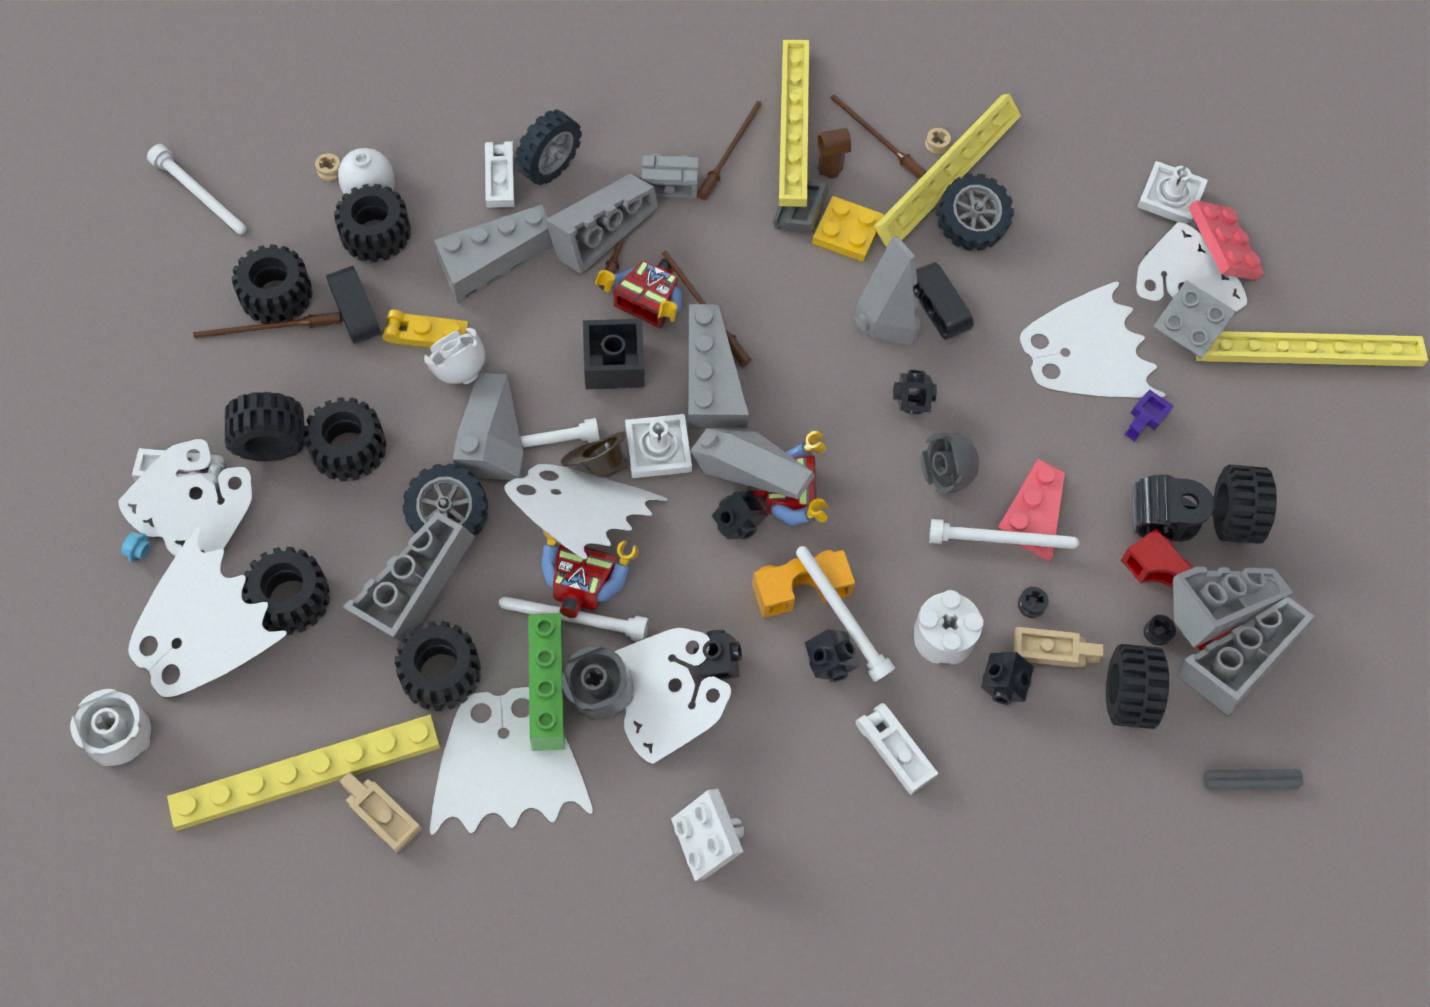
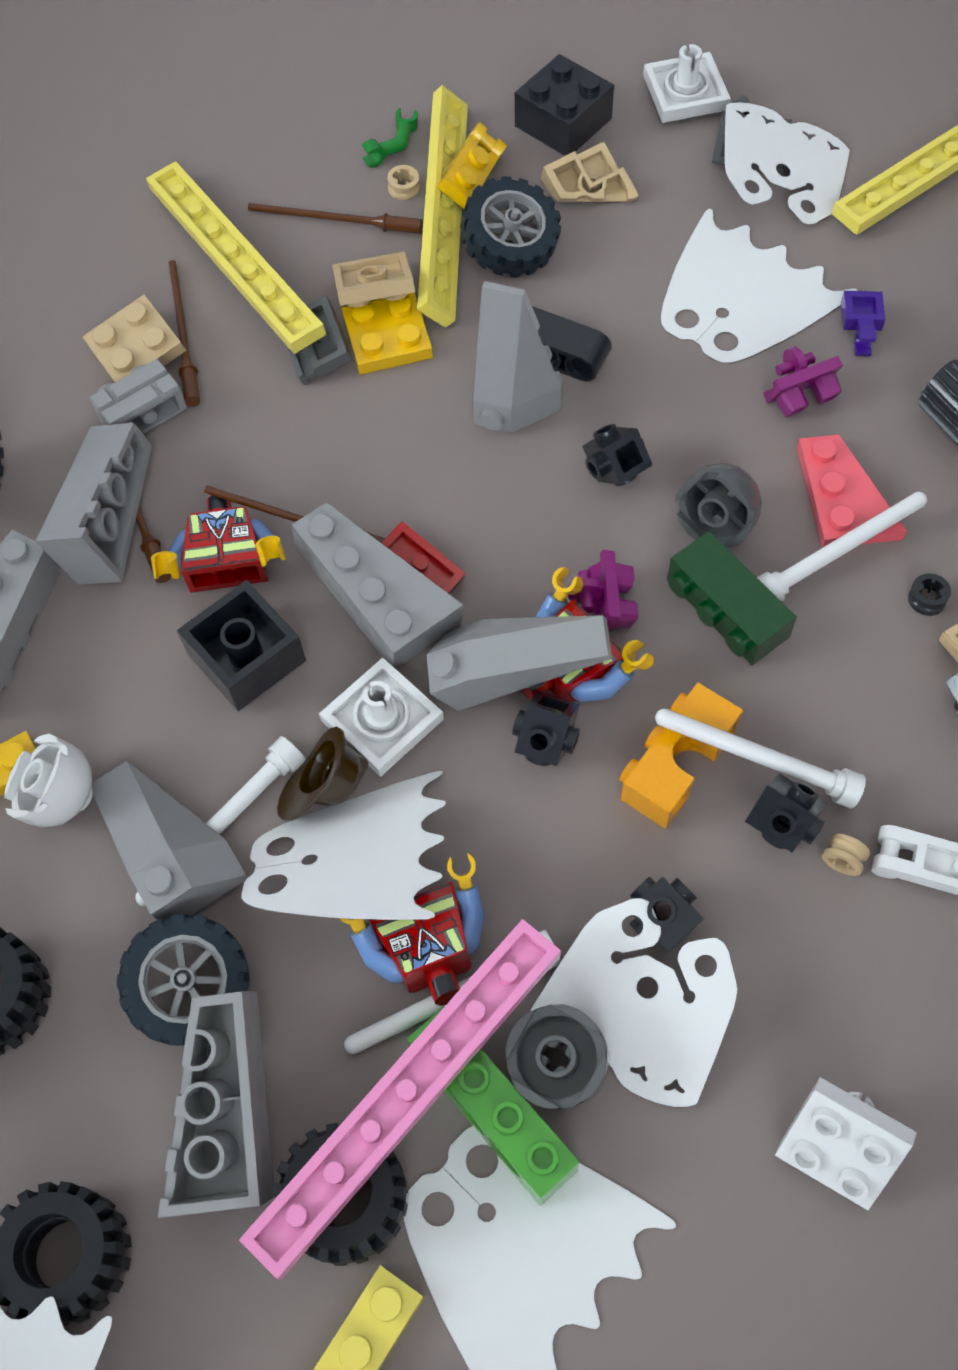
camera: 30 degrees left, 0 degrees up
(503, 636) = (398, 1100): none -> bright pink plate
(697, 136) = (133, 339): none -> tan plate
(751, 376) = (423, 557): none -> red plate
(832, 151) = (302, 251): reddish brown piece -> none
(846, 702) = (846, 854): none -> tan bush
(848, 458) = (602, 588): none -> magenta hips
(863, 190) = (373, 279): none -> tan plate
(908, 520) = (730, 598): none -> dark green brick
(937, 110) = (379, 151): none -> green arm
(963, 624) = (878, 687): white brick -> none
(985, 157) = (471, 165): none -> yellow plate
(1055, 212) = (588, 178): none -> tan slope
(1078, 155) = (563, 105): none -> black brick
(1084, 431) = (789, 389): none -> magenta hips
(1194, 319) = (826, 190): light grey hinge -> none
(1226, 240) = (782, 96): coral plate -> none

